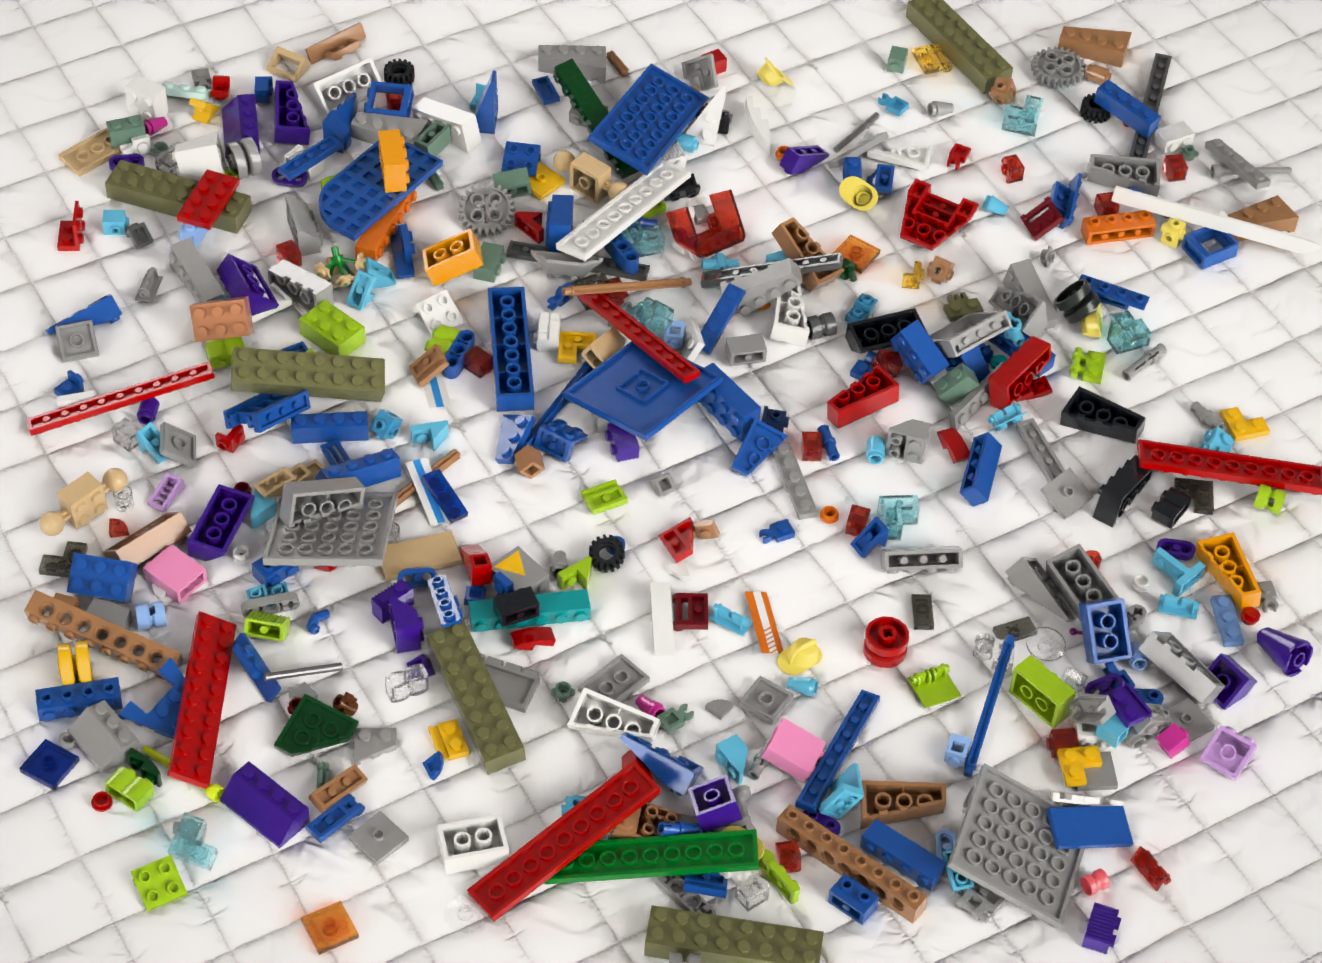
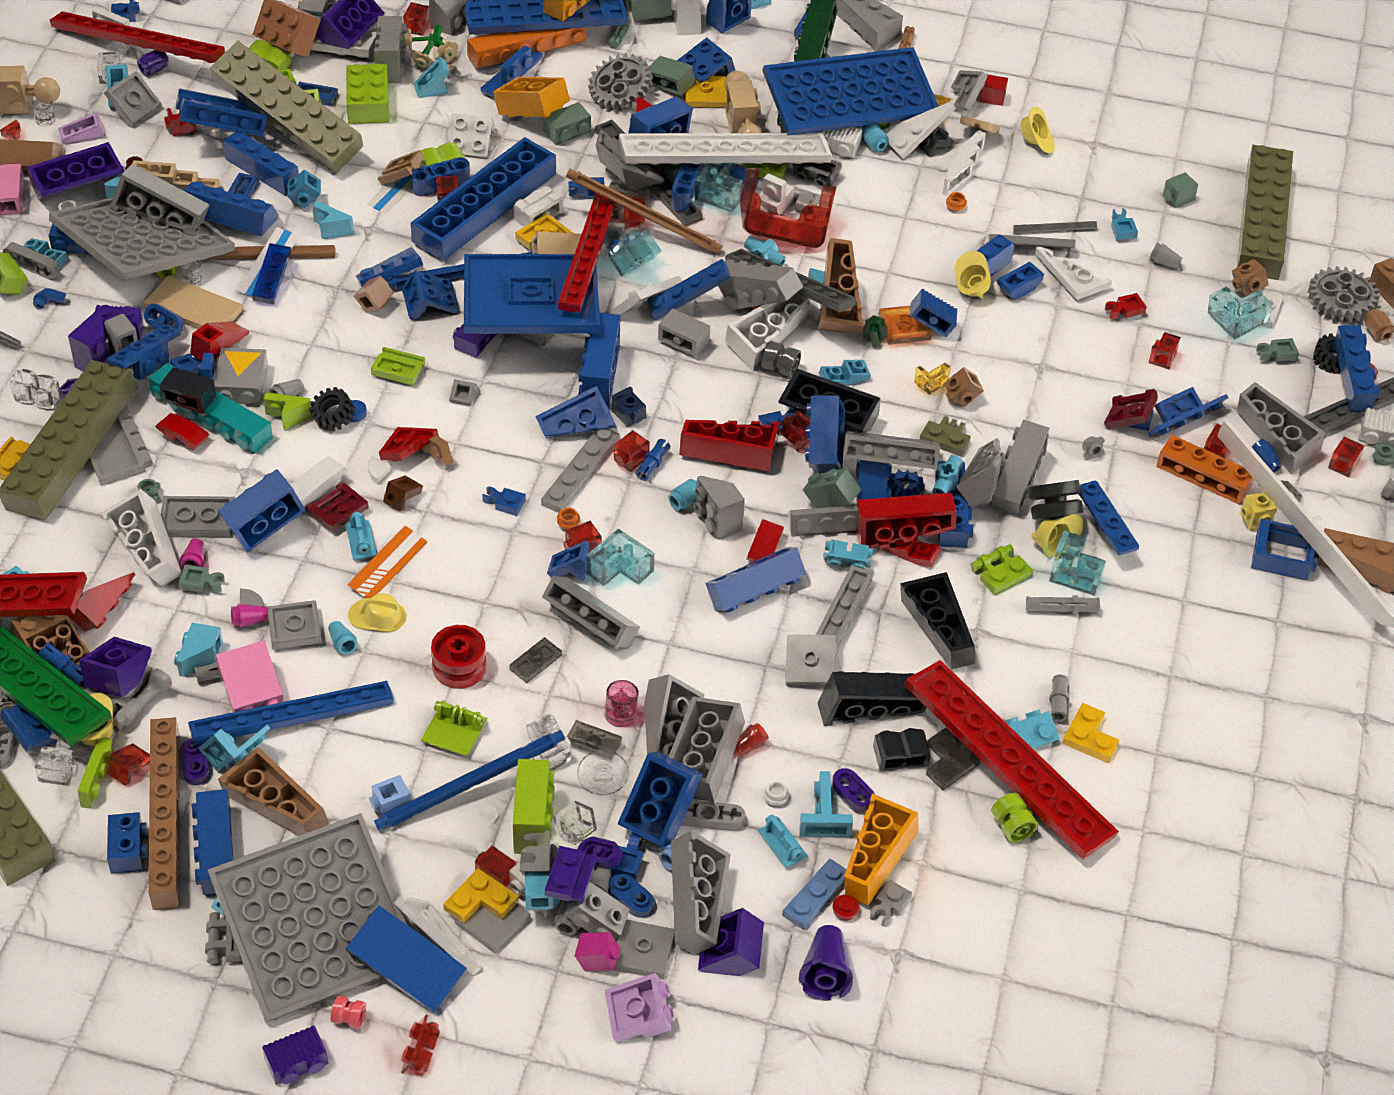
camera: 45 degrees right, 0 degrees up
(384, 275) = (463, 75): medium azure slope -> none
(424, 603) = (119, 333): none -> light grey brick
(665, 644) = (262, 510): none -> blue brick
(674, 772) = (132, 605): blue wedge -> none
(675, 338) = (640, 276): light blue brick -> none
(716, 573) = (400, 490): none -> reddish brown bracket
(732, 716) = (246, 615): none -> dark pink cone
(737, 92) = (979, 124): none -> tan tile
(801, 158) = (965, 214): dark purple slope -> none
(870, 234) = (933, 313): none -> blue brick
(928, 63) = (1212, 207): clear yellow plate -> none
(931, 218) = (1018, 336): red wedge -> none
(994, 205) = (1102, 370): medium azure cone -> none
(1006, 597) = (621, 703): none -> clear pink wheel
(1067, 125) = (1279, 349): none -> sand green plate

